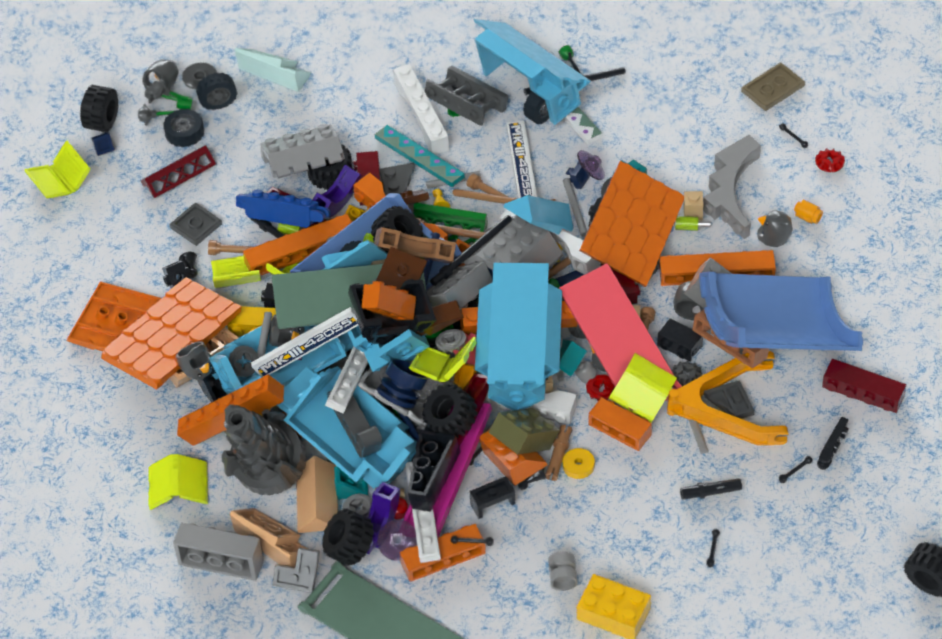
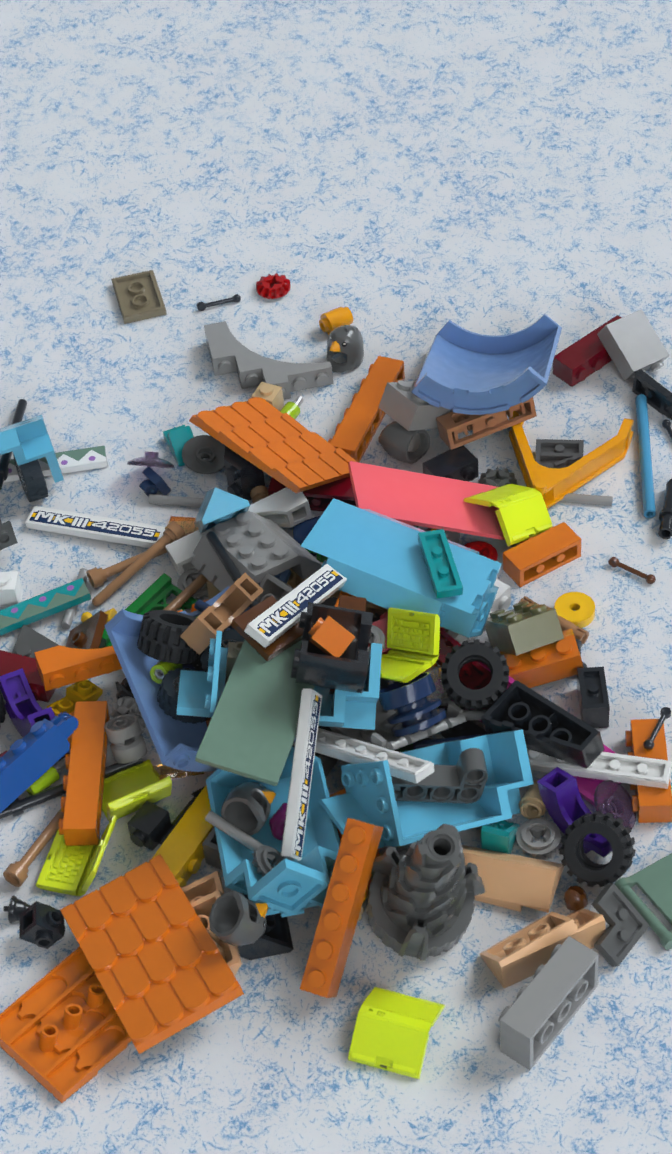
camera: 65 degrees left, 5 degrees down
(315, 540) = (575, 898): none -> reddish brown hinge
(432, 278) = (287, 610): none -> tile
(516, 346) = (440, 563): none -> teal plate
(633, 500) = (614, 562): none -> reddish brown hinge
(764, 456) = (645, 456): none -> dark azure piece
(872, 405) = (633, 345): none -> light grey brick

